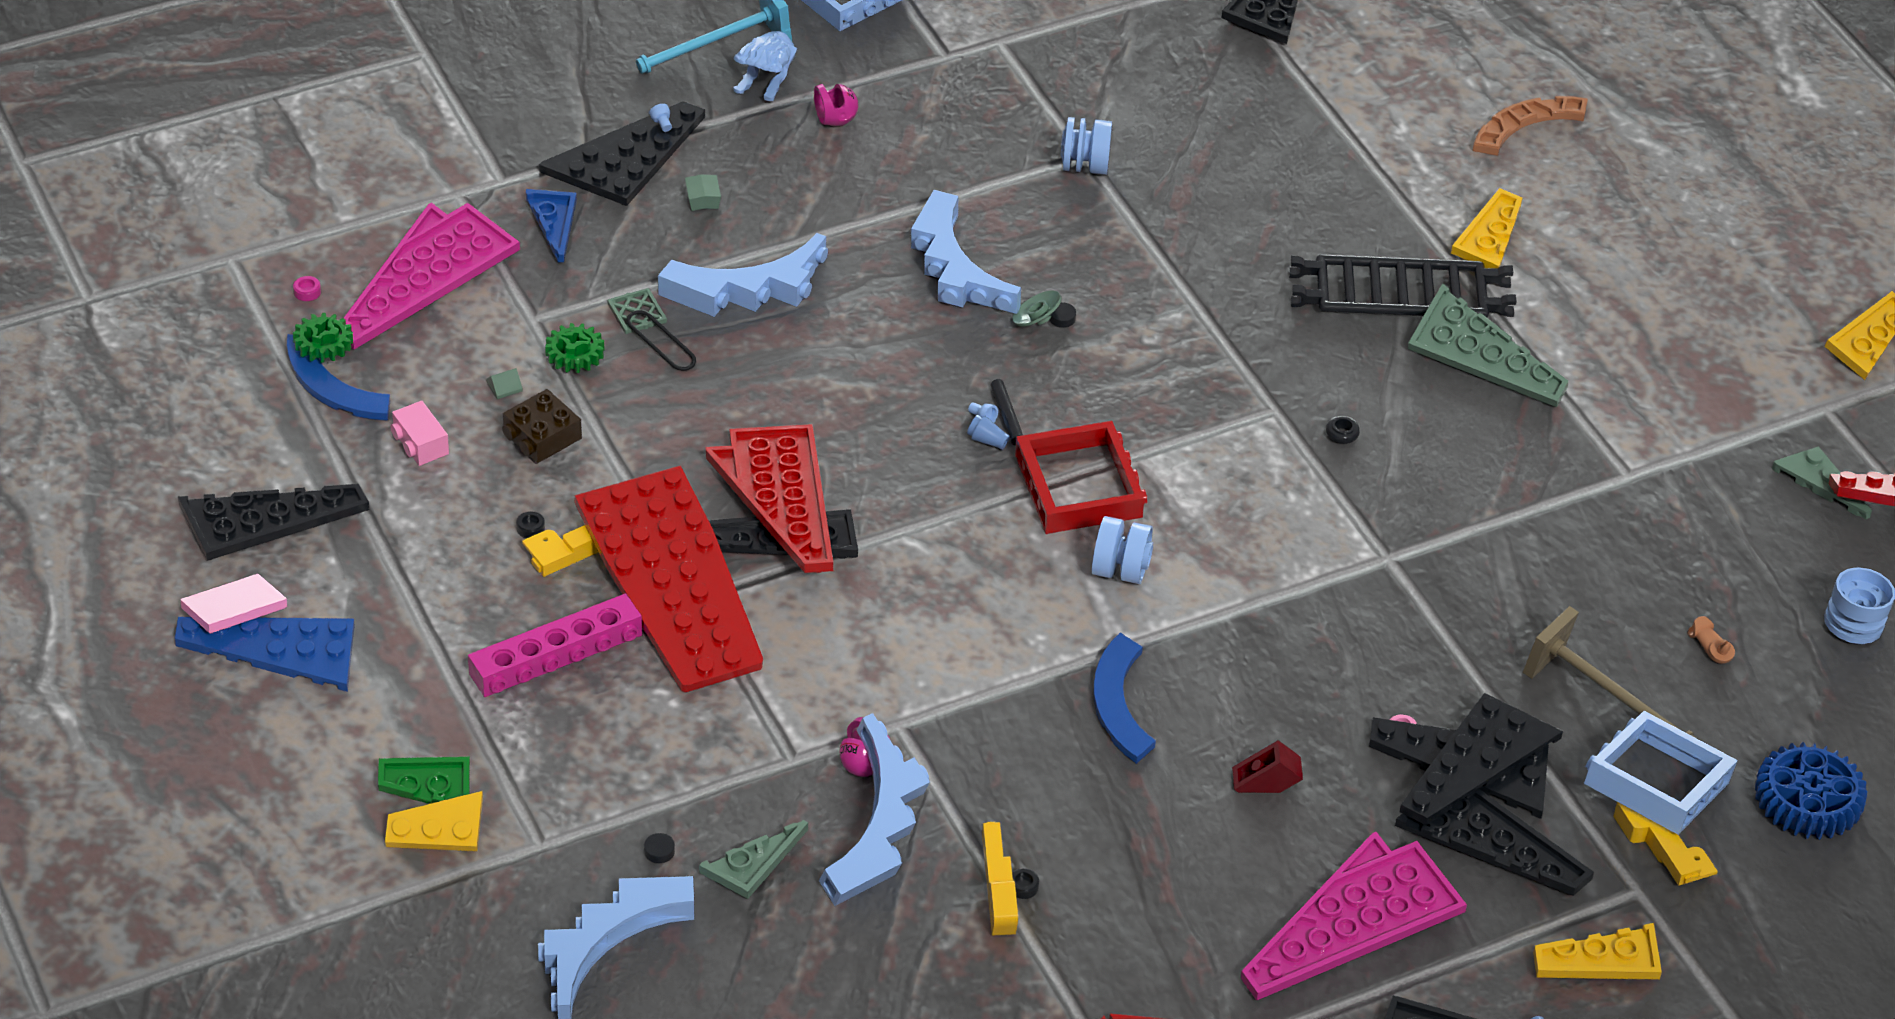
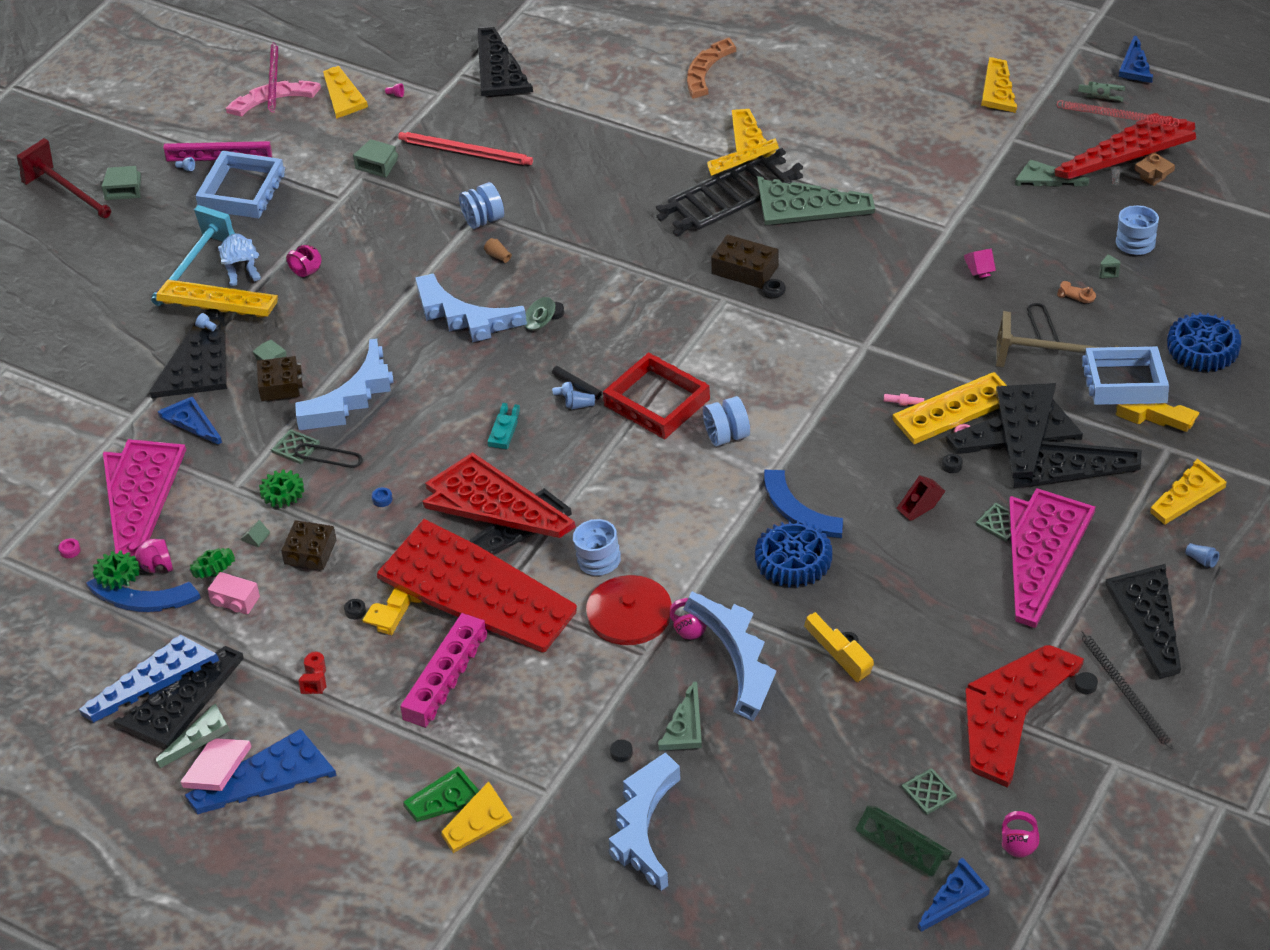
camera: 30 degrees left, 0 degrees up
(256, 472) = (149, 676): none -> wing
(258, 562) = (202, 731): none -> sand green wing
(376, 343) = (153, 553): none -> dark pink helmet
(426, 386) = (212, 563): none -> green gear
(429, 563) = (314, 680): none -> red leg
(673, 419) = (382, 497): none -> blue tile
(683, 223) = (279, 378): none -> dark brown brick
(701, 96) = (217, 298): none -> yellow plate
(815, 699) = (629, 610): none -> red dish
(839, 608) = (597, 547): none -> light blue wheel
(879, 416) = (504, 427): none -> teal hinge
(1028, 28) = (376, 158): none -> sand green torso
(1054, 750) = (793, 554): none -> blue gear
(1062, 208) = (495, 249): none -> medium nougat cone
(1144, 72) = (469, 149): none -> coral piece
(1333, 837) = (1003, 536): none -> sand green window
(1334, 377) = (744, 261): none -> dark brown brick
(1350, 754) = (952, 463): none -> black tile
(1366, 647) = (903, 399): none -> bright pink bar
(1402, 679) = (941, 404): none -> yellow plate
(1450, 250) = (739, 157): none -> yellow wing
(1622, 538) = (980, 262): none -> dark pink slope
(1644, 656) = (1048, 317): none -> black piece
(1781, 632) = (1109, 267): none -> sand green slope

